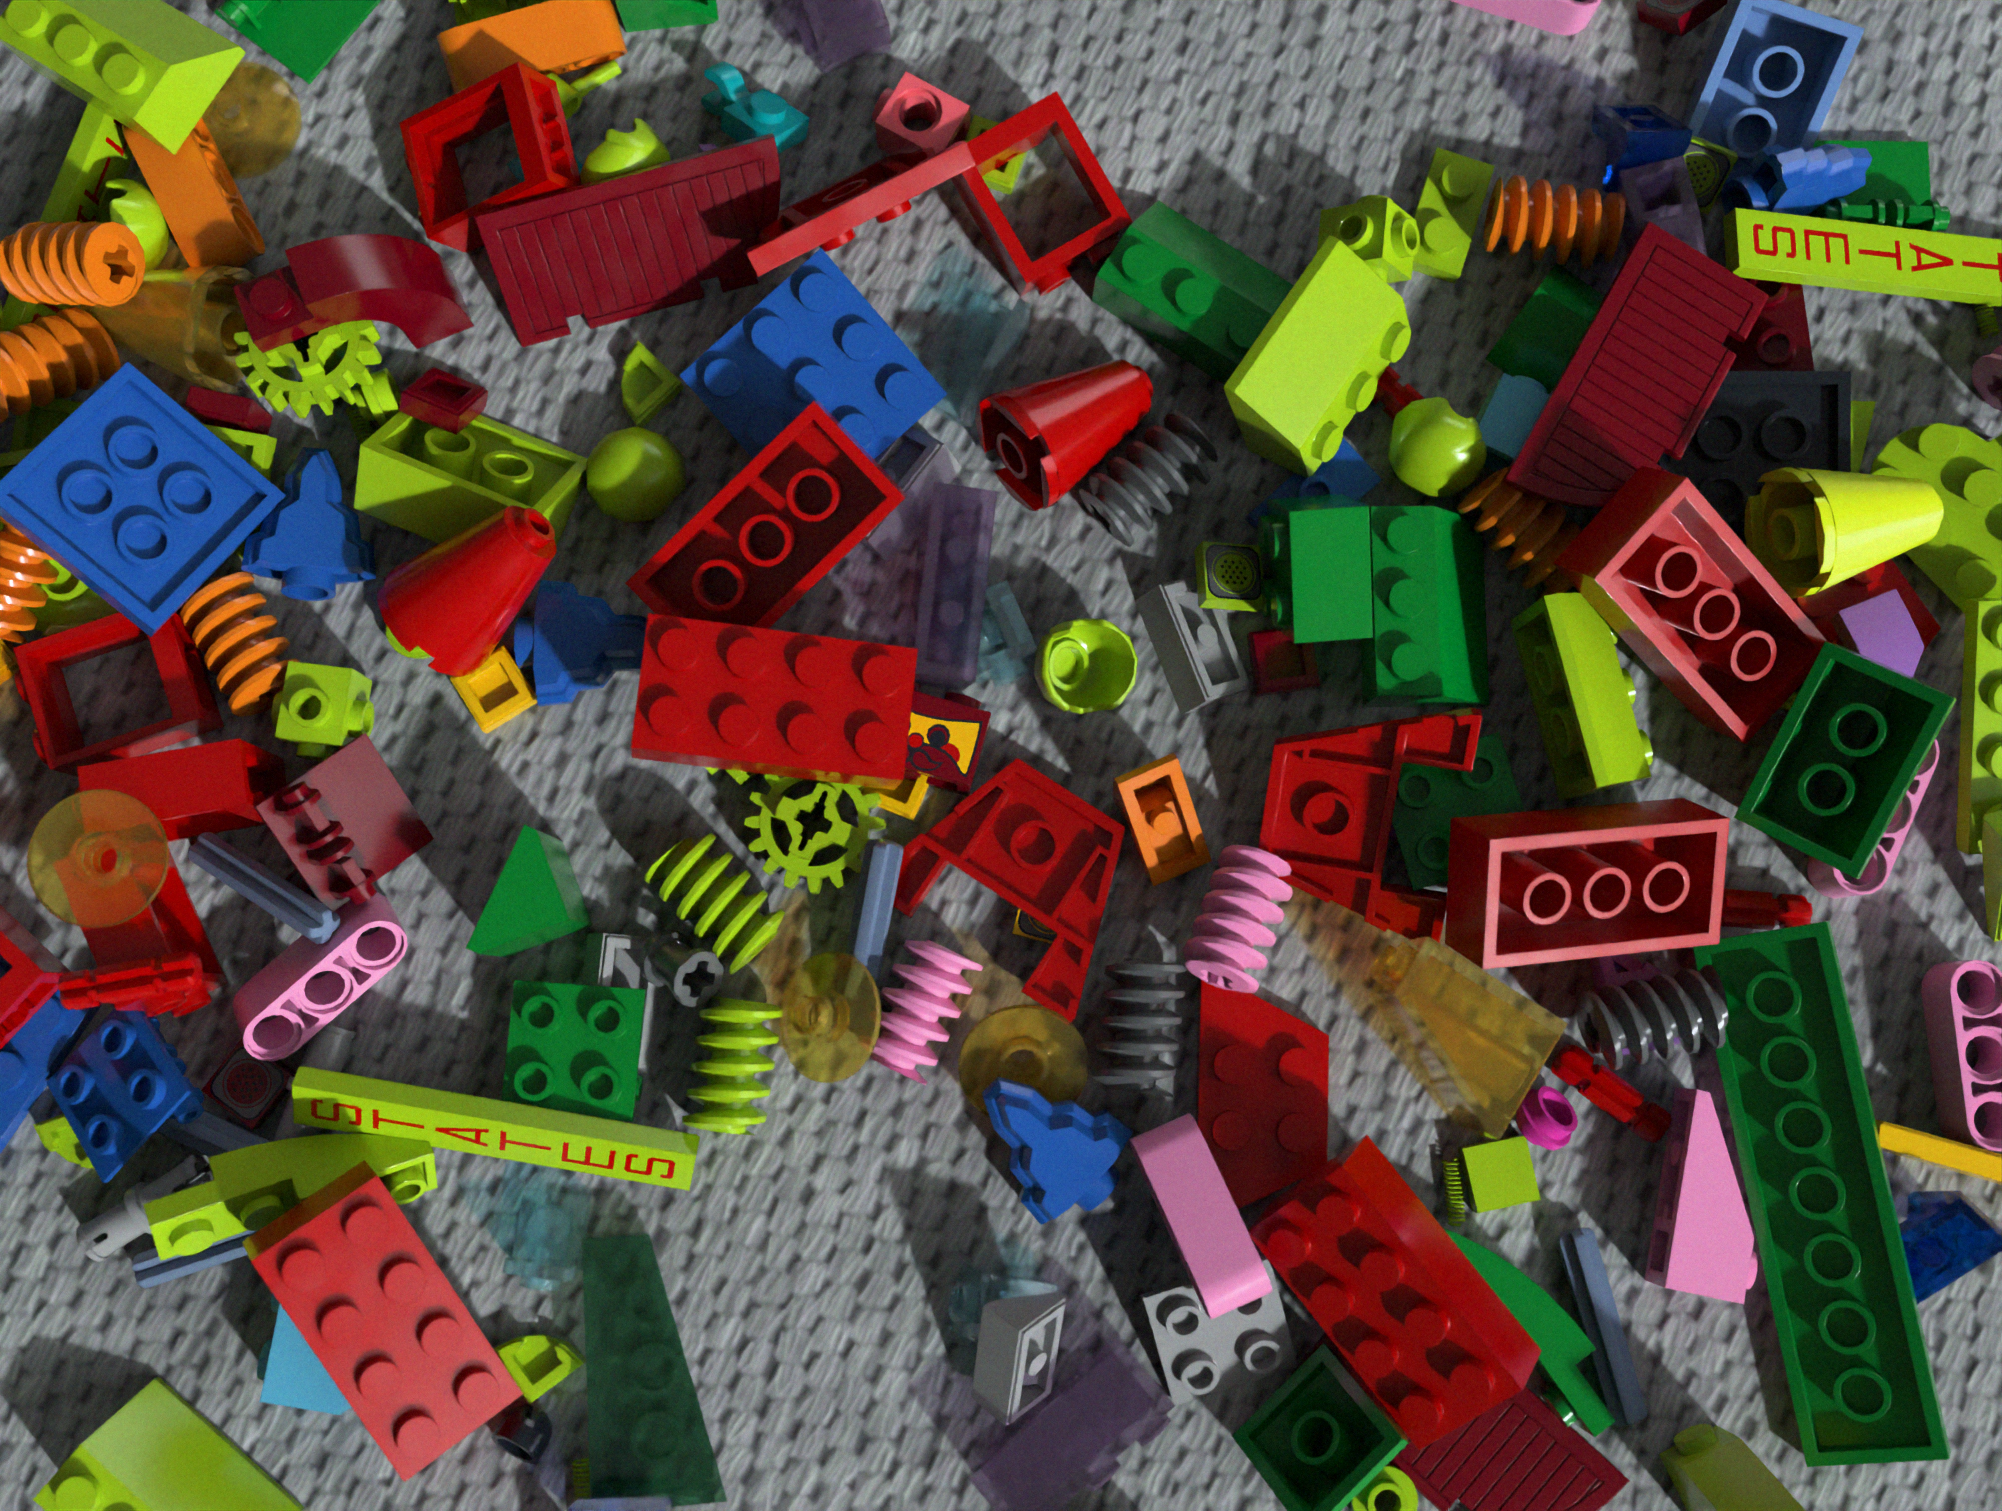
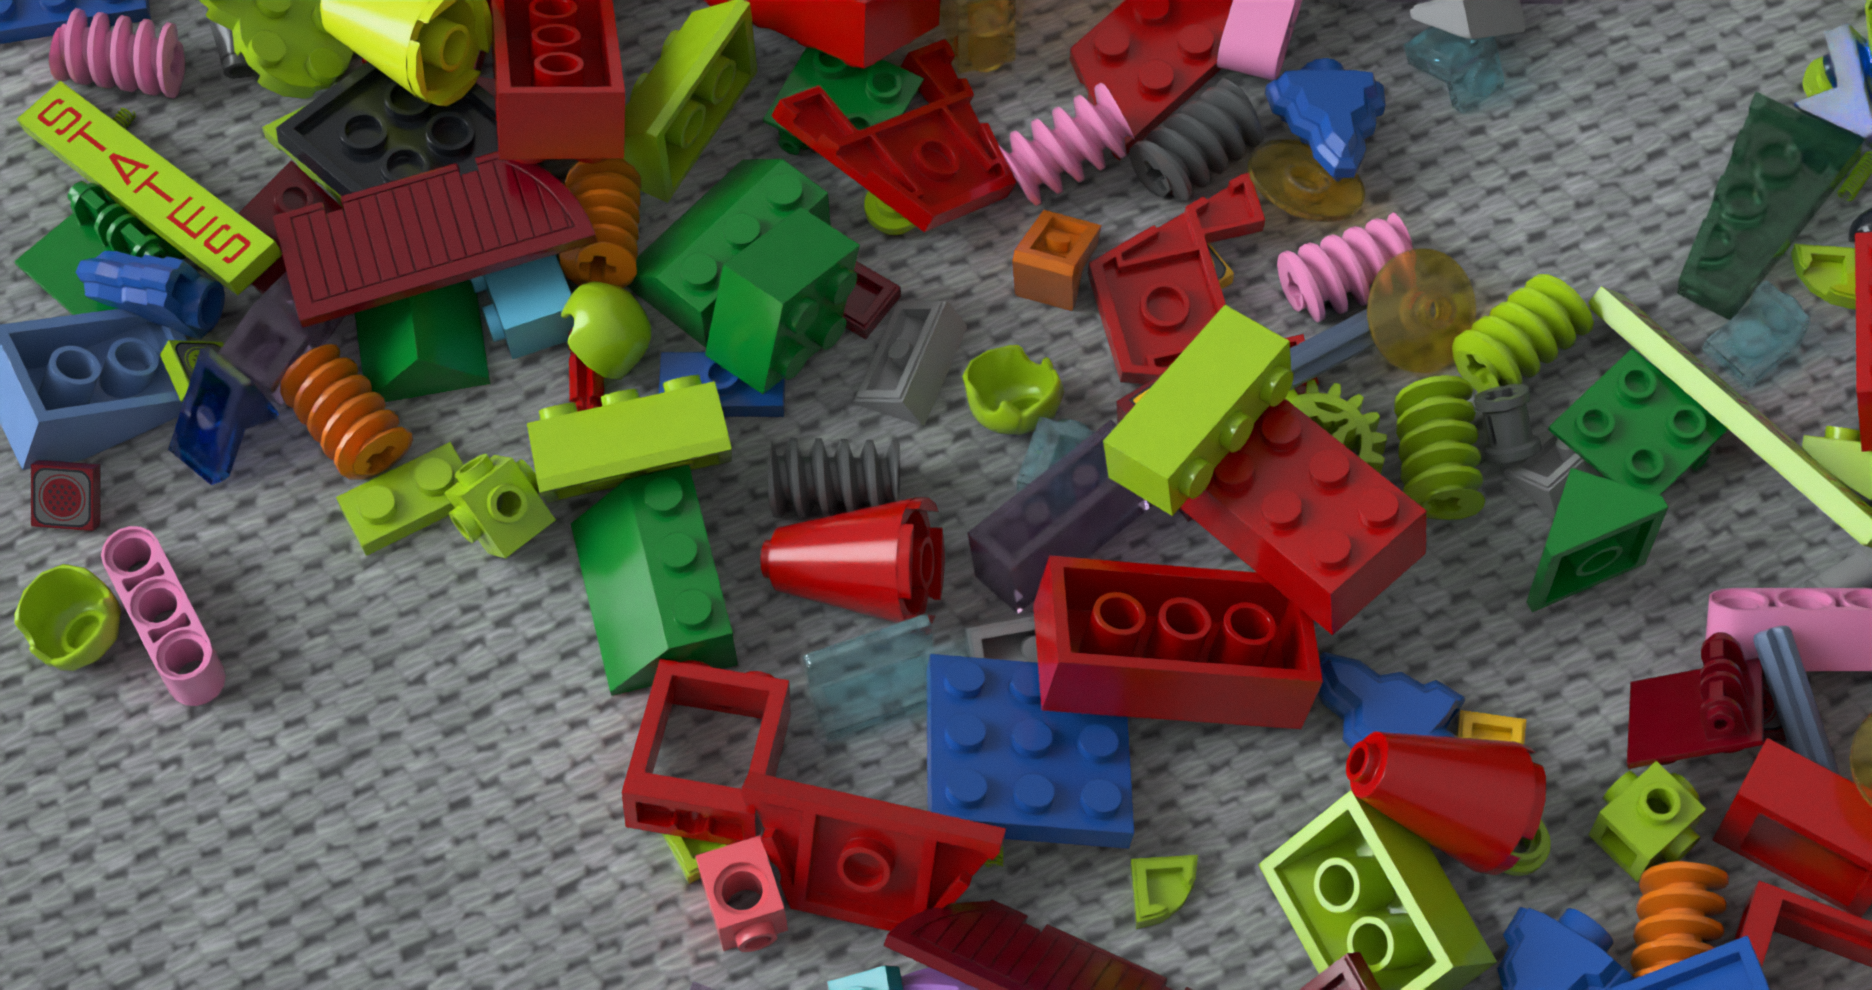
camera: 130 degrees left, 20 degrees down
(635, 474) = (1232, 819): lime hair -> none
(872, 677) = (1199, 410): none -> lime brick
(1229, 576) = (841, 375): lime tile -> none

